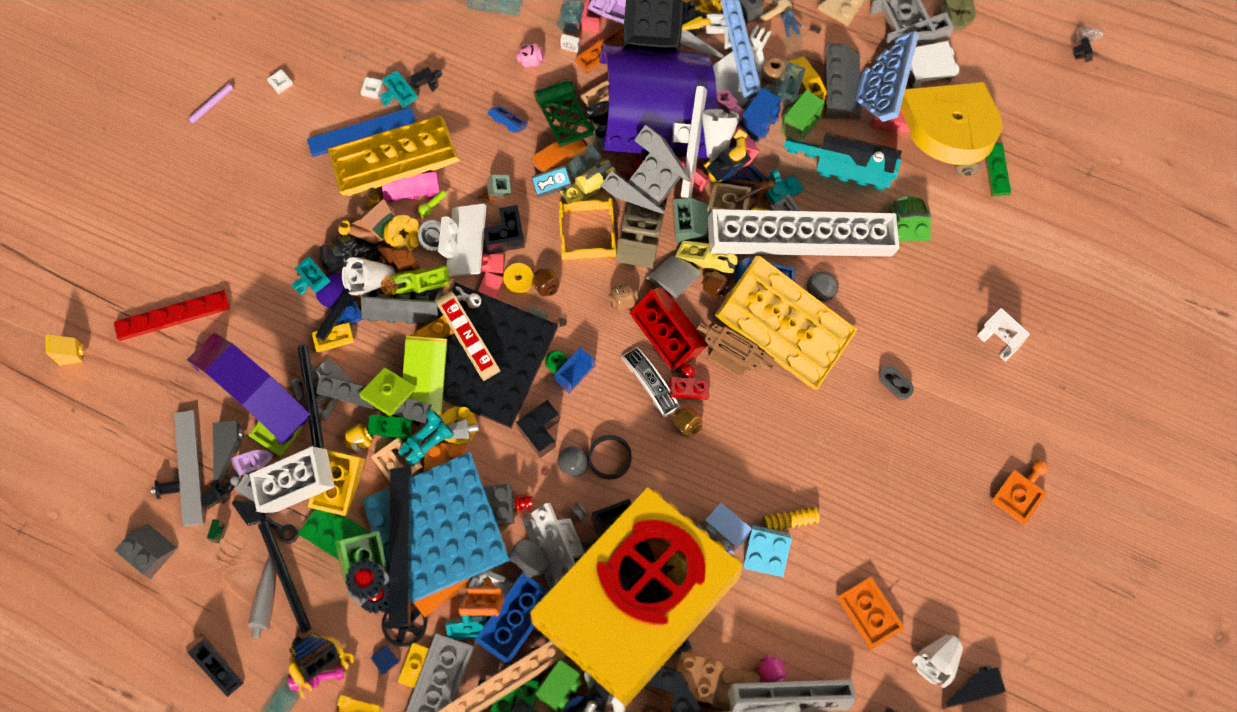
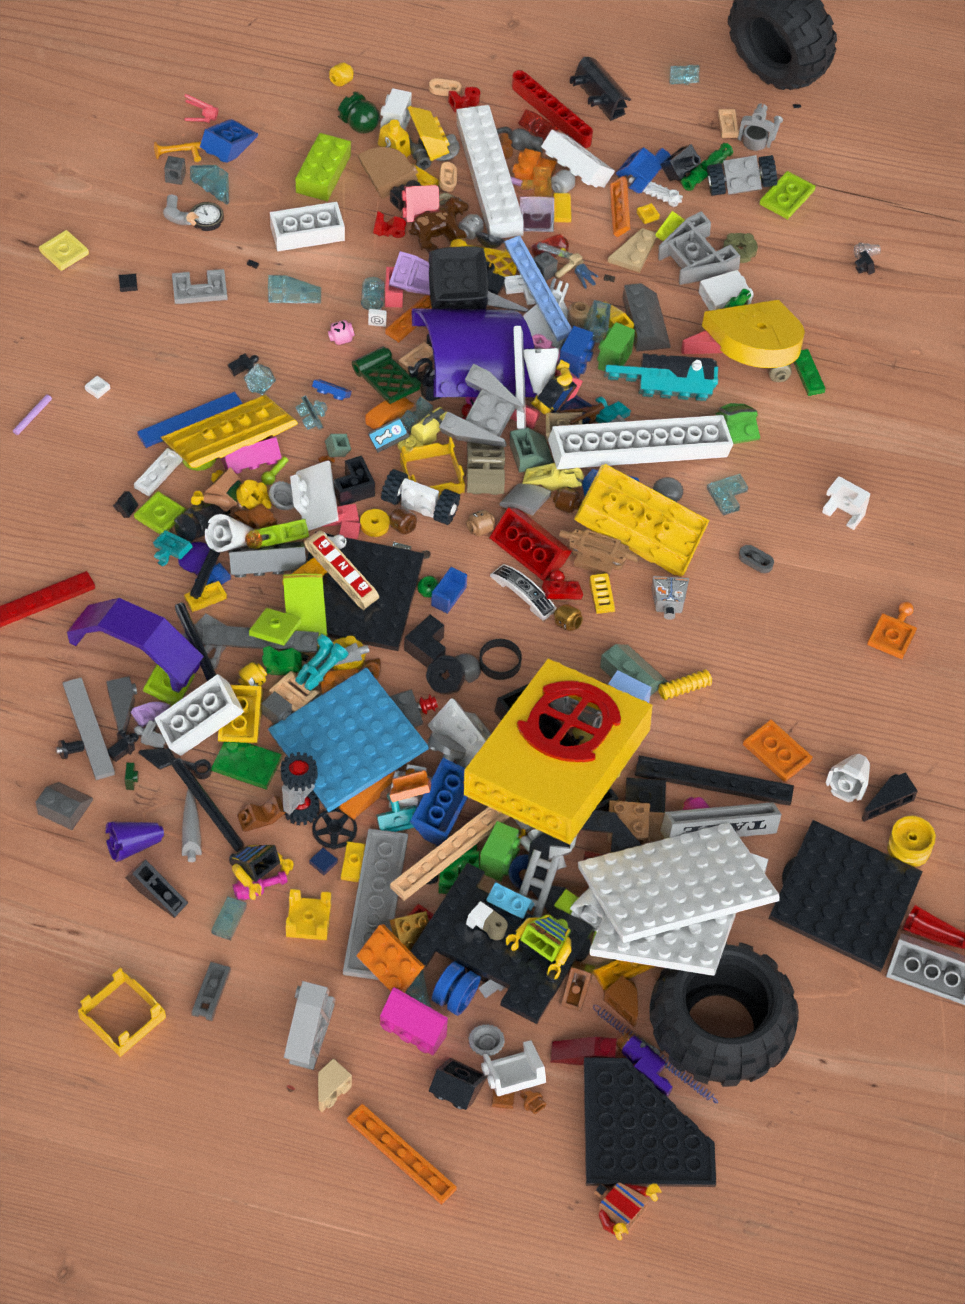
camera: 15 degrees left, 15 degrees down
(202, 603) = (131, 838): none -> dark purple cone
(278, 221) = (126, 504): none -> black tile
(308, 235) = (159, 513): none -> lime plate
(315, 189) = (158, 472): none -> white plate
(331, 597) = (260, 816): none -> dark orange slope
(360, 548) = (269, 769): bright green brick -> none
(372, 87) = (190, 381): white tile -> none
(374, 478) = (276, 708): none -> dark grey brick
(397, 89) = (219, 378): teal plate -> none
(400, 548) = (317, 748): black tile -> none
(437, 98) = (259, 379): none -> clear light blue brick
(480, 447) = (374, 667): none -> dark orange piece
(484, 141) = (312, 420): none -> clear light blue hips
(540, 474) = (439, 667): none -> black plate
(546, 246) = (420, 497): none -> plate
(579, 511) = (482, 707): light grey bush -> none
(681, 132) = (506, 373): white plate -> none
(696, 23) = (498, 282): yellow bar -> none
(723, 643) = (647, 791): none -> black plate
(728, 382) = (598, 582): none -> yellow slope
(741, 493) = (626, 660): none -> sand green slope
(767, 550) = (670, 710): medium azure brick -> none
(797, 412) = (669, 595): none -> light grey torso
(798, 637) = (714, 780): none -> black plate
(879, 297) = (724, 493): none -> clear light blue plate
(884, 84) = (689, 308): light blue plate -> none
(939, 79) = (739, 300): none -> green arm

